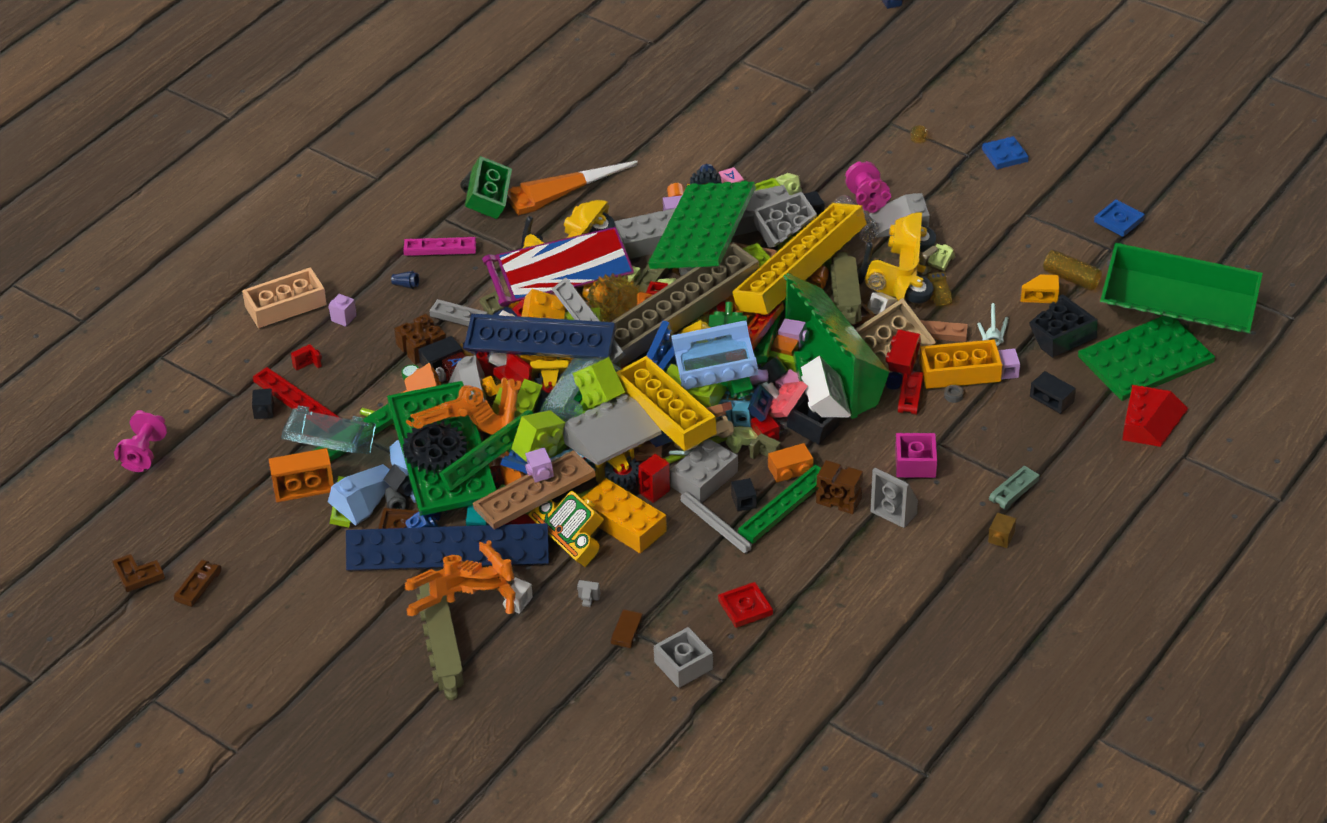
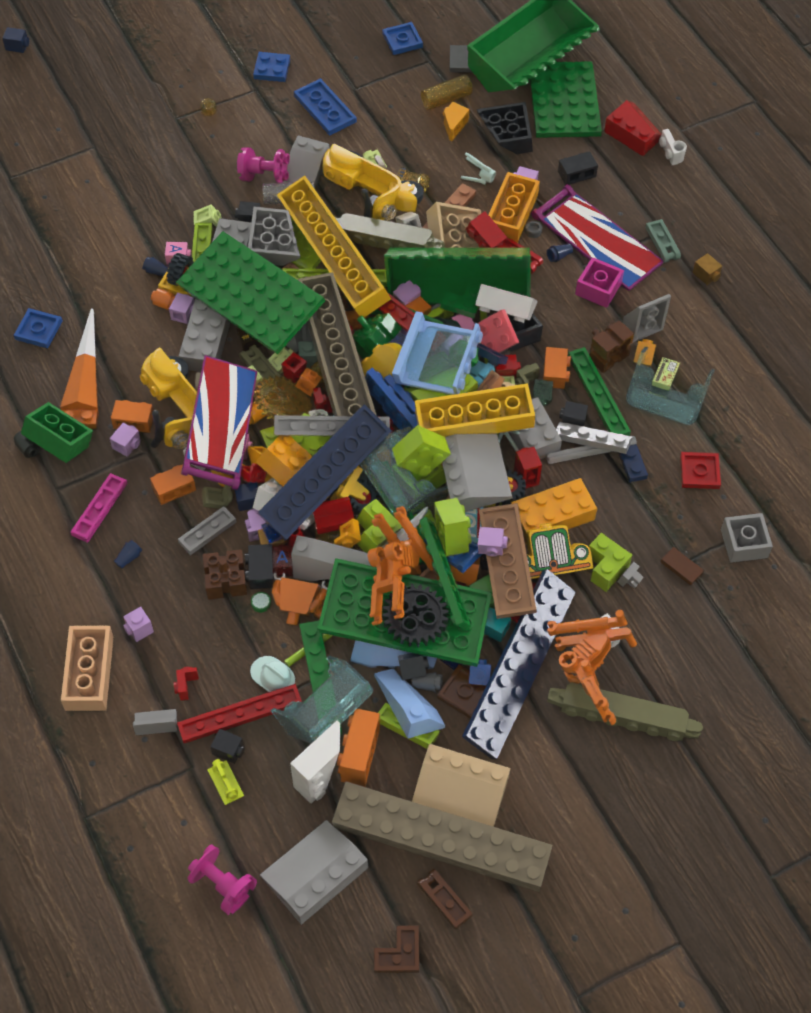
camera: 65 degrees left, 15 degrees up
(179, 498) = (315, 871): none -> light grey slope
(233, 416) = (225, 781): none -> neon yellow hinge
(250, 559) = (442, 836): none -> dark tan brick
(260, 442) = (316, 763): none -> white wedge
(262, 356) = (155, 722): none -> light grey panel
(302, 556) = (461, 785): none -> tan slope
(347, 405) = (271, 673): none -> light aqua piece
(480, 276) = (172, 484): none -> orange brick
(513, 231) = (125, 439): none -> lavender brick
(543, 224) = (132, 414): none -> orange brick
(592, 140) = (38, 328): none -> blue plate
(597, 569) = (611, 561): none -> lime brick
(721, 556) = (633, 464): none -> dark blue plate
(725, 514) = (594, 437): none -> light grey plate
(754, 464) = (543, 390): none -> clear green bracket
(811, 543) = (665, 403): none -> clear light blue windscreen
(844, 543) = (665, 374): none -> yellowish green tile
(859, 518) = (650, 353): none -> light orange bracket
(936, 418) = (558, 252): none -> dark blue cone
(980, 442) = (598, 236): none -> flag
(983, 202) = (325, 106): none -> blue plate
(1142, 456) = (673, 149): none -> white plate

